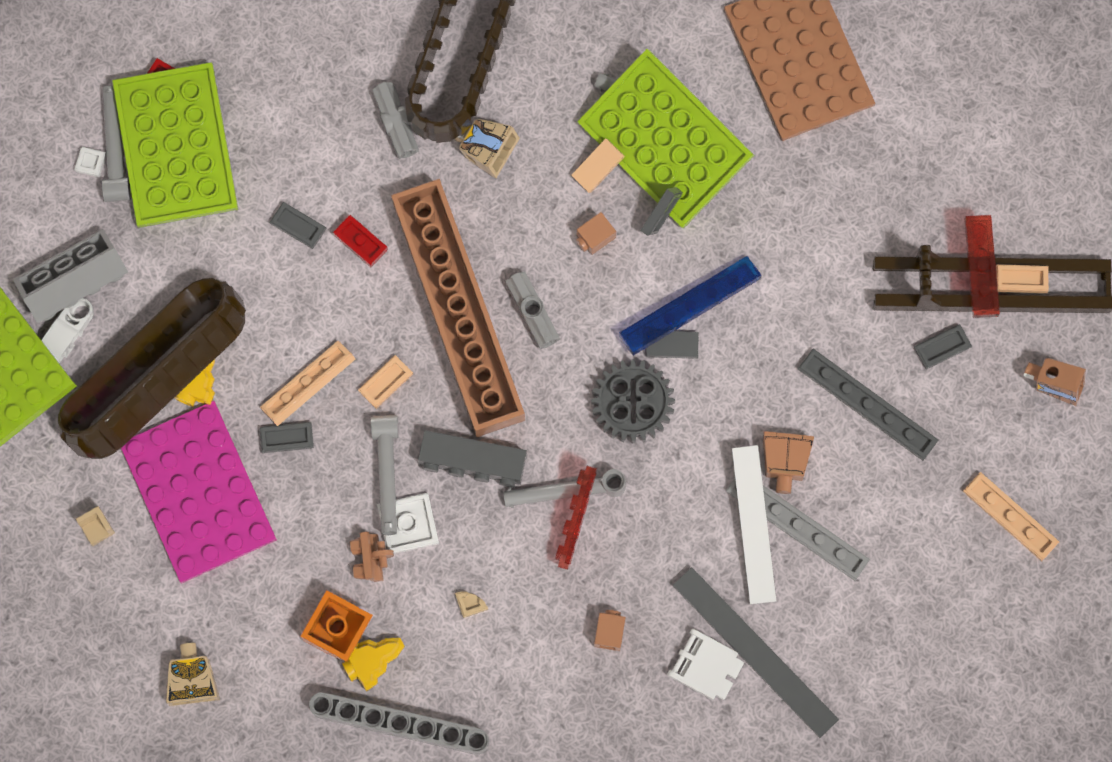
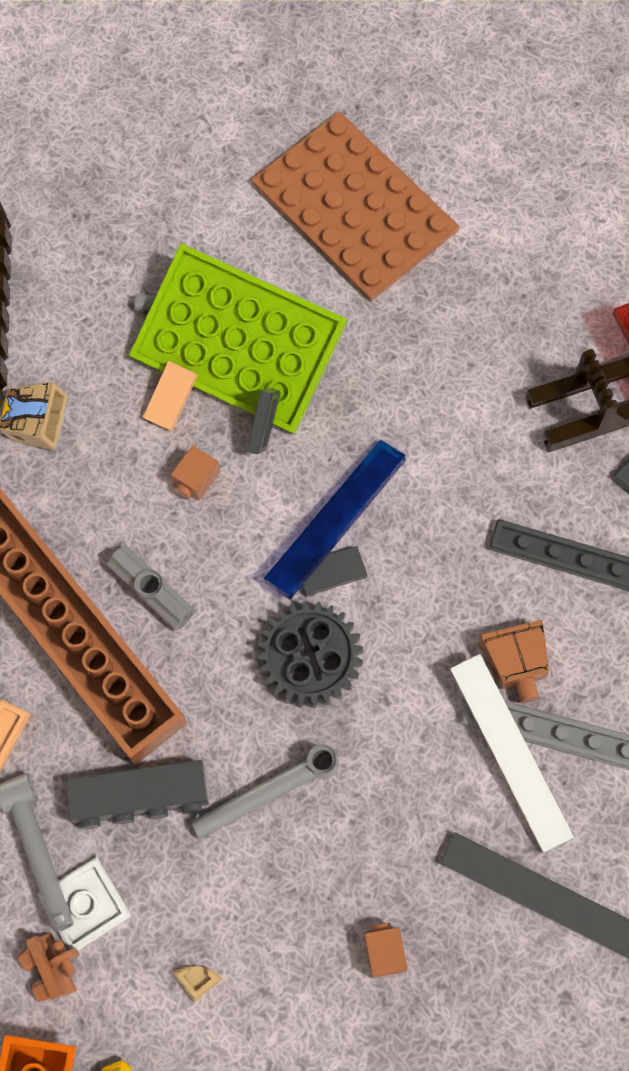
camera: 20 degrees left, 5 degrees down
(572, 527) = (292, 836): clear red plate -> none
(707, 666) = (521, 952): white plate -> none

